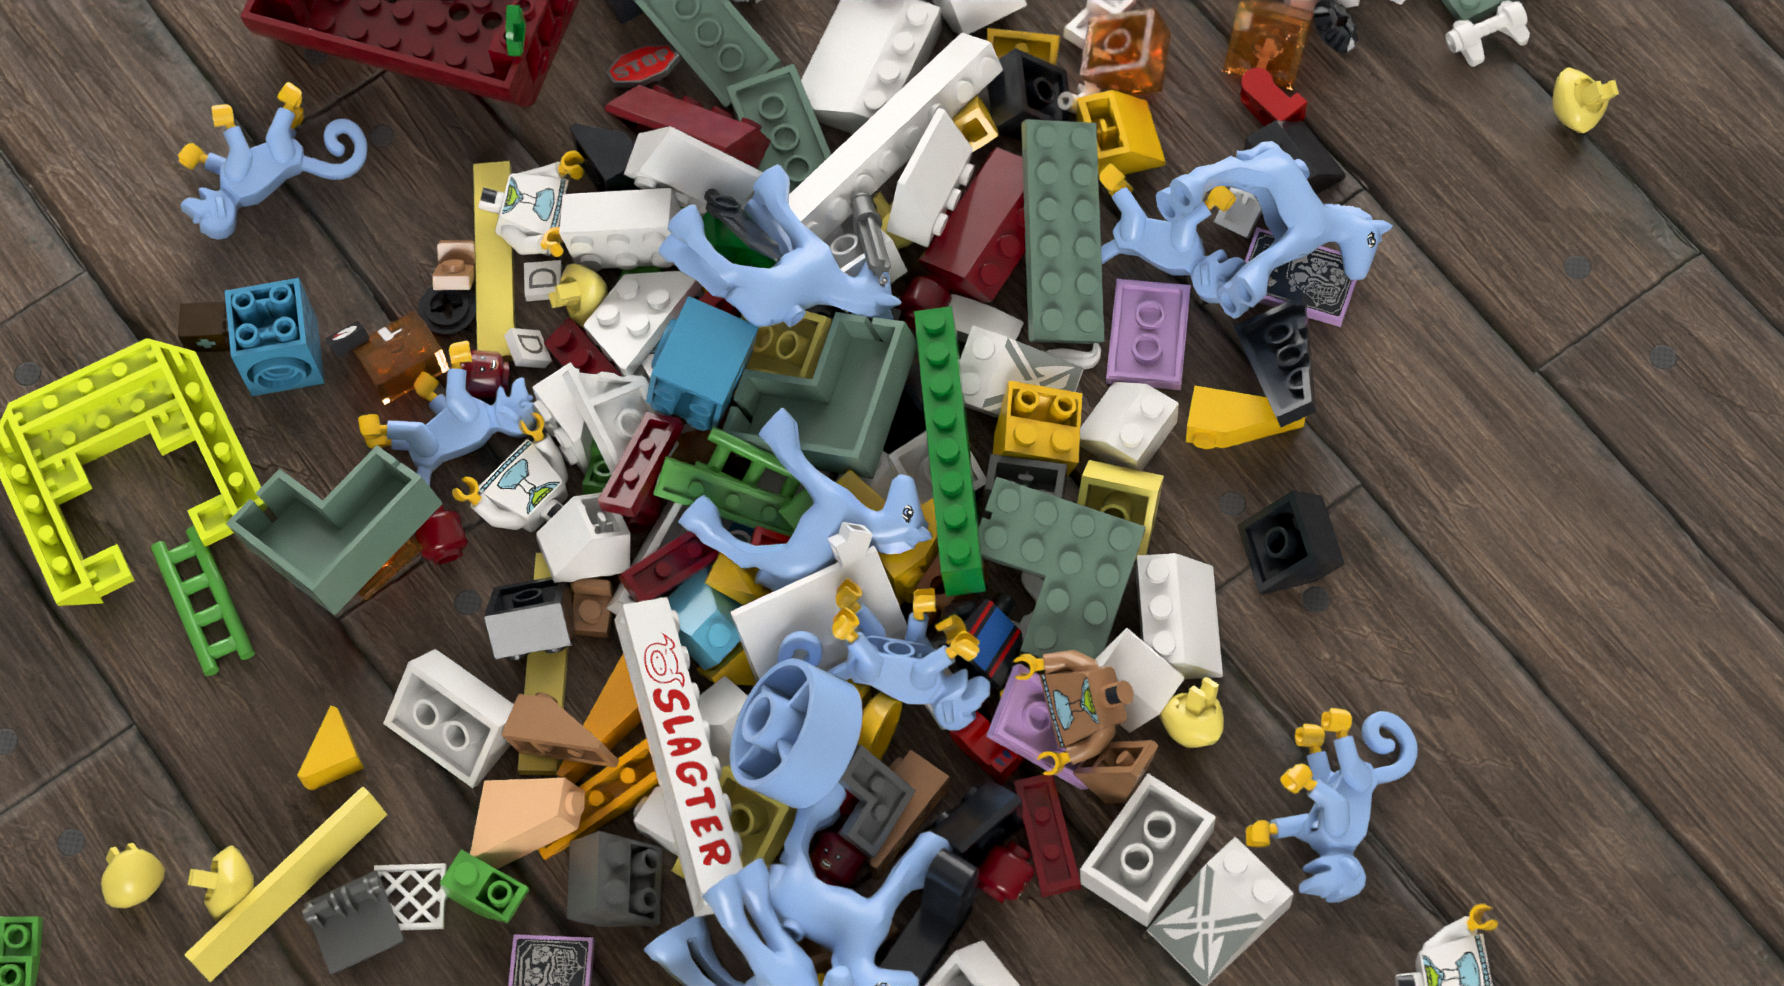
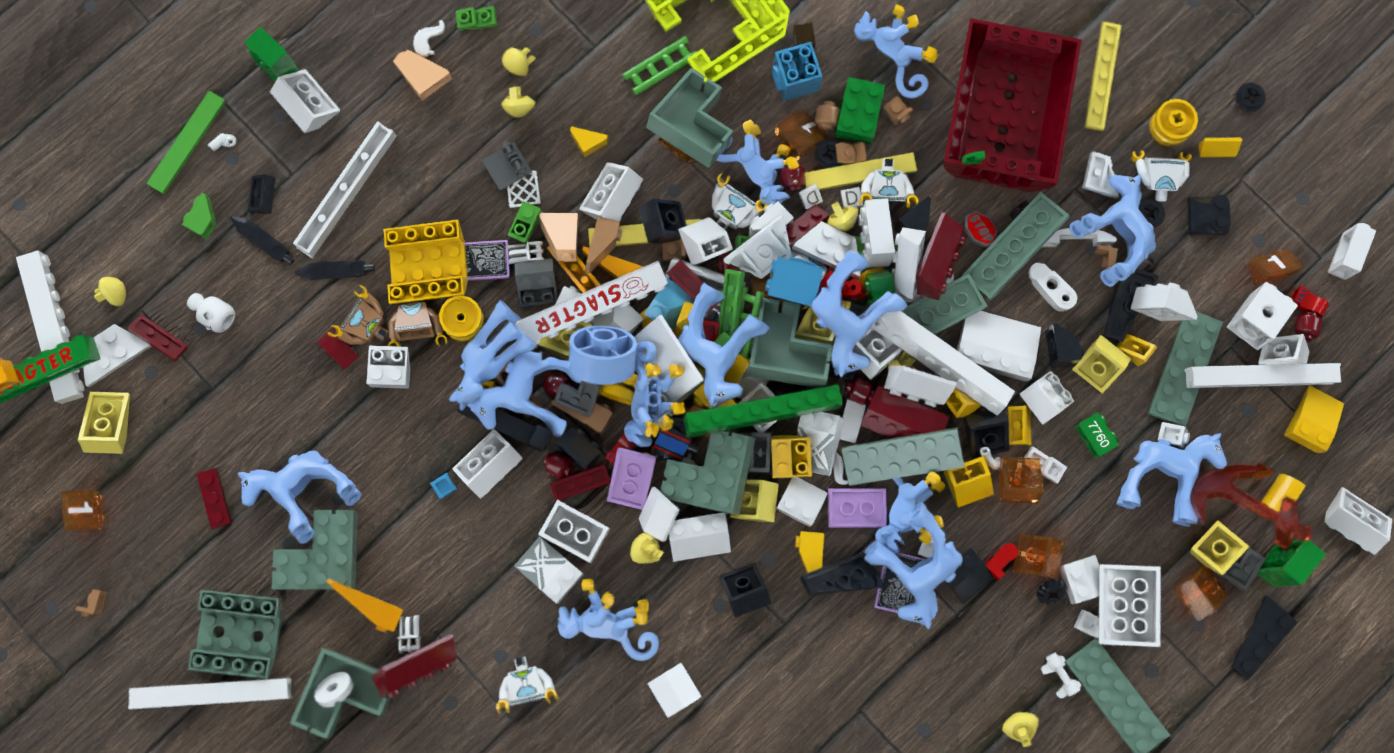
camera: 75 degrees right, 15 degrees up
(286, 884) = (521, 132): light yellow tile -> none
(347, 339) = (805, 107): black tile -> none
(372, 301) = (827, 115): none -> medium nougat head
(373, 243) = (859, 110): none -> green brick
(387, 183) = (897, 111): none -> medium nougat bracket
(442, 537) = (703, 174): dark red head -> none
(547, 894) = (522, 252): none -> white arm
(640, 464) = (740, 260): dark red plate -> none
(731, 214) = (873, 291): black piece -> none
(850, 543) = (701, 368): white piece -> none
(867, 226) = (886, 354): dark grey axle -> none
(1081, 702) = (639, 491): medium nougat torso -> none
(1117, 770) = (610, 511): medium nougat slope -> none
(1479, 698) = (674, 690): none -> white slope

